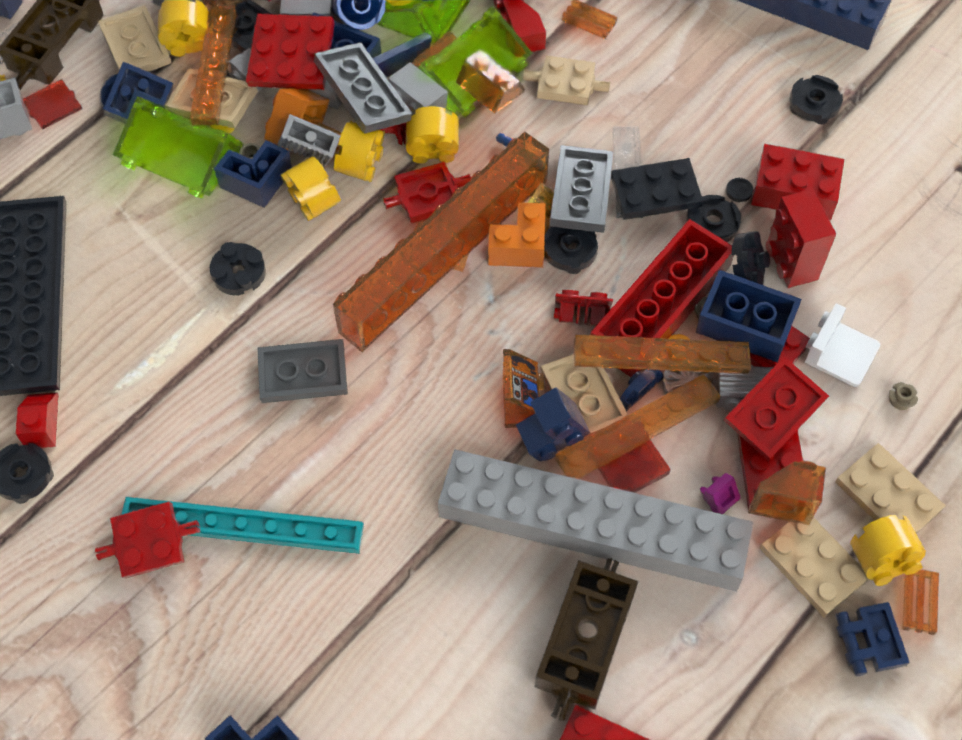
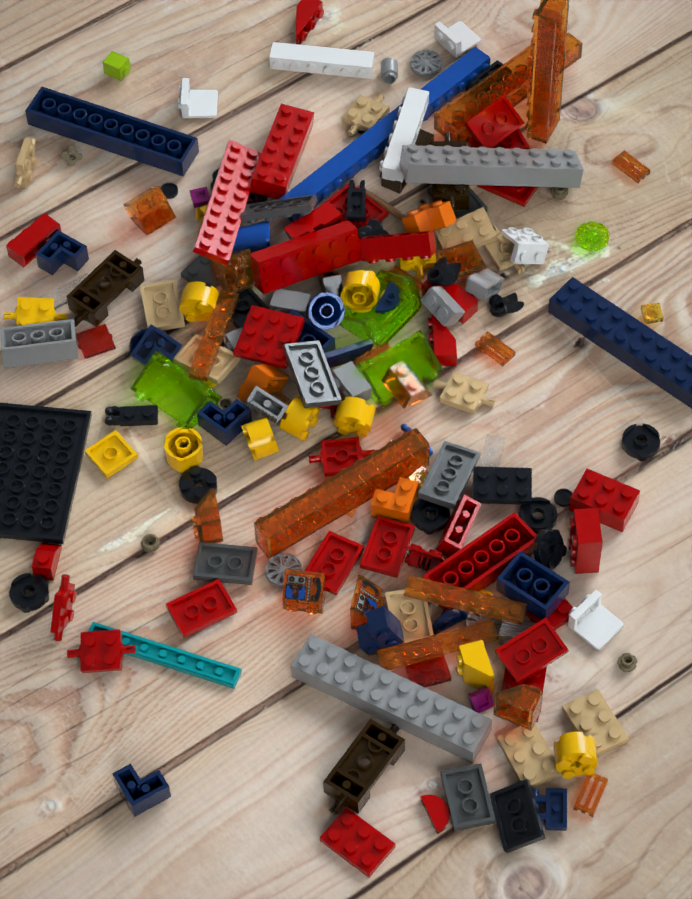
camera: 15 degrees right, 5 degrees down
(74, 486) = (62, 607): none -> red plate
(104, 249) = (111, 454): none -> yellow plate
(123, 192) = (132, 415): none -> black hinge
(184, 357) = (150, 538): none -> dark tan plate
(206, 222) = (183, 449): none -> yellow brick
(263, 313) = (207, 519): none -> clear orange slope
(282, 443) = (201, 608): none -> red plate
(387, 364) = (279, 568): none -> light grey wheel
(427, 388) = (304, 591): none -> clear orange slope
(454, 339) = (336, 559): none -> red plate
(524, 302) = (386, 547): none -> red plate
(616, 254) = (458, 526): none -> red brick
(704, 447) = (475, 665): none -> yellow slope
(710, 679) = (437, 811): none -> red tile
(749, 647) = (467, 797): none -> dark grey plate
(833, 662) = (517, 816): none -> black plate

